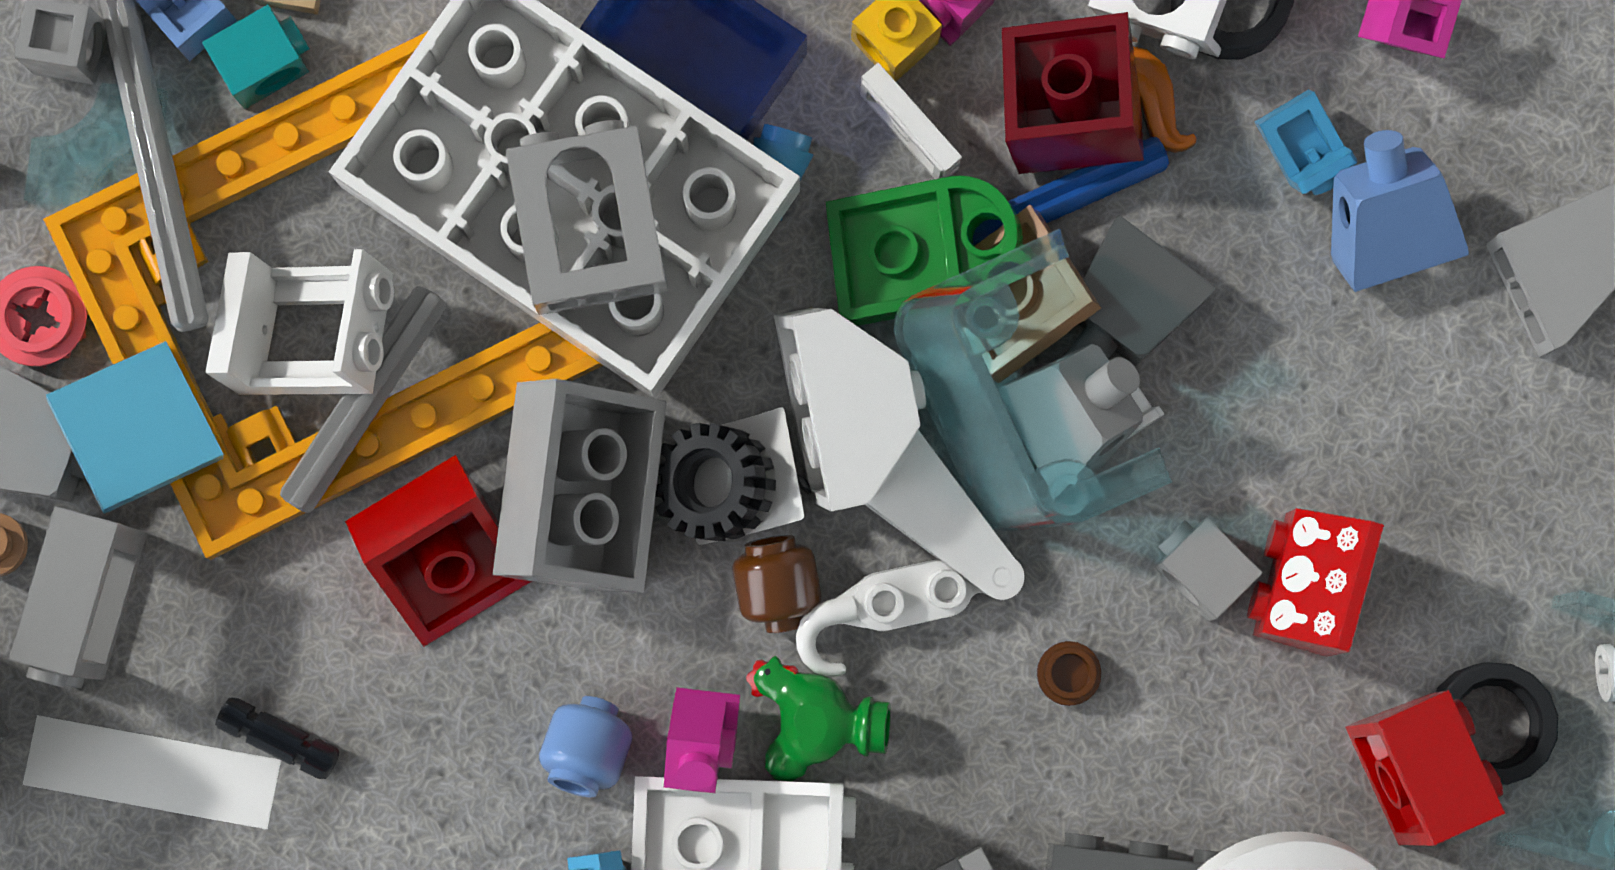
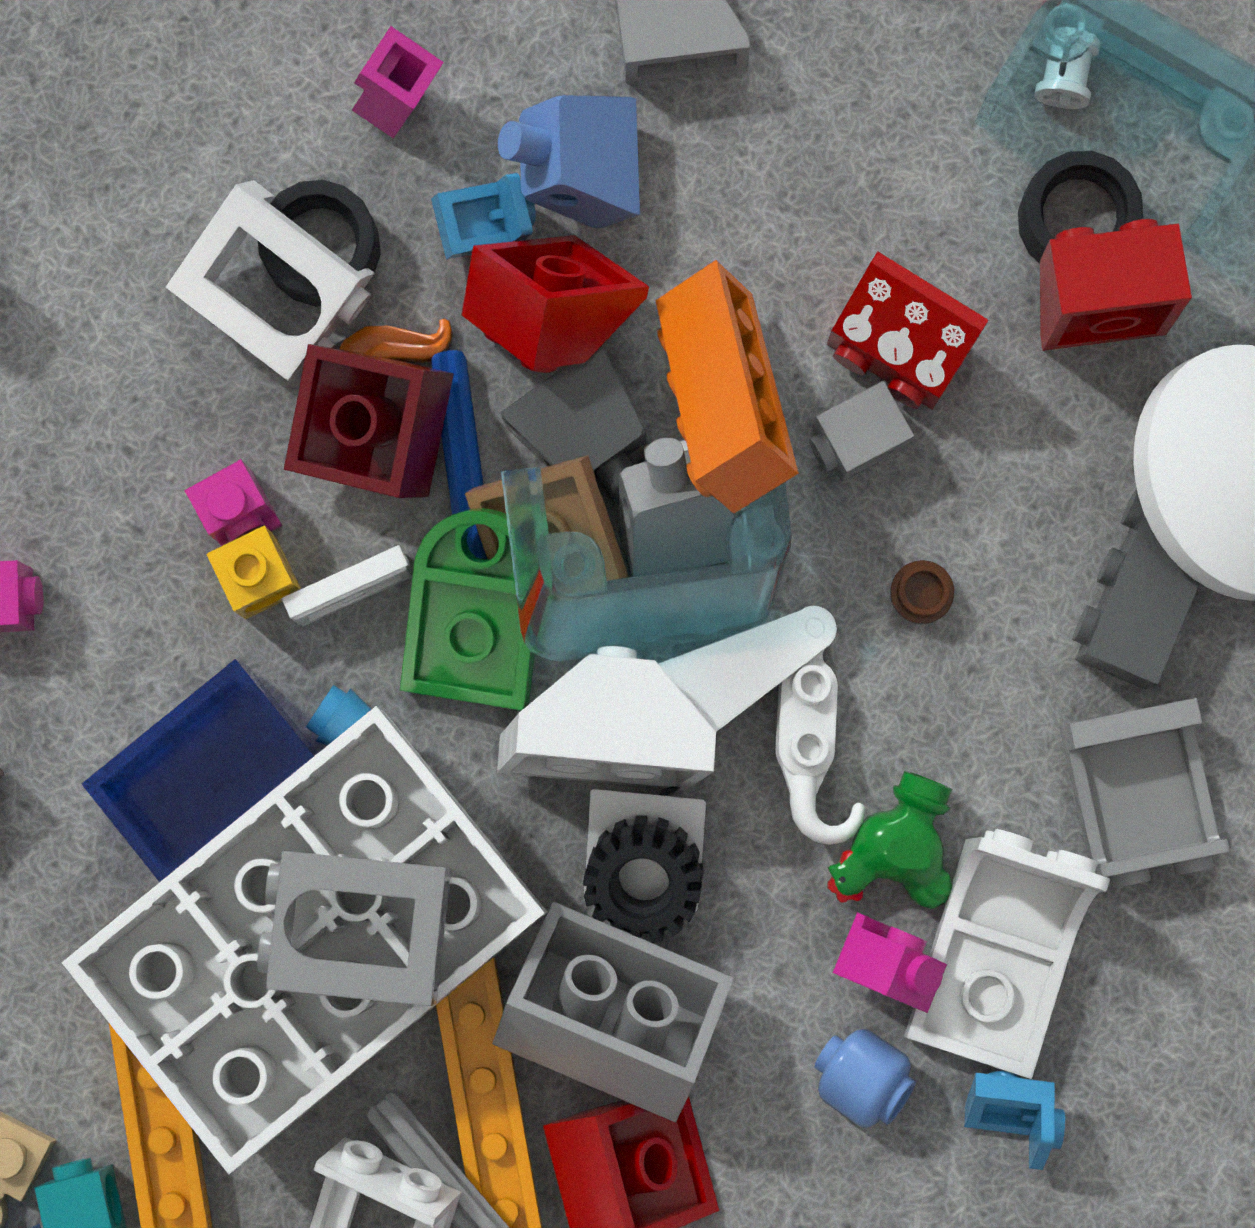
camera: 70 degrees left, 0 degrees up
(776, 582) = (758, 845): reddish brown head -> none
(1205, 417) = (724, 389): none -> orange brick
(1244, 228) = (548, 299): none -> red slope

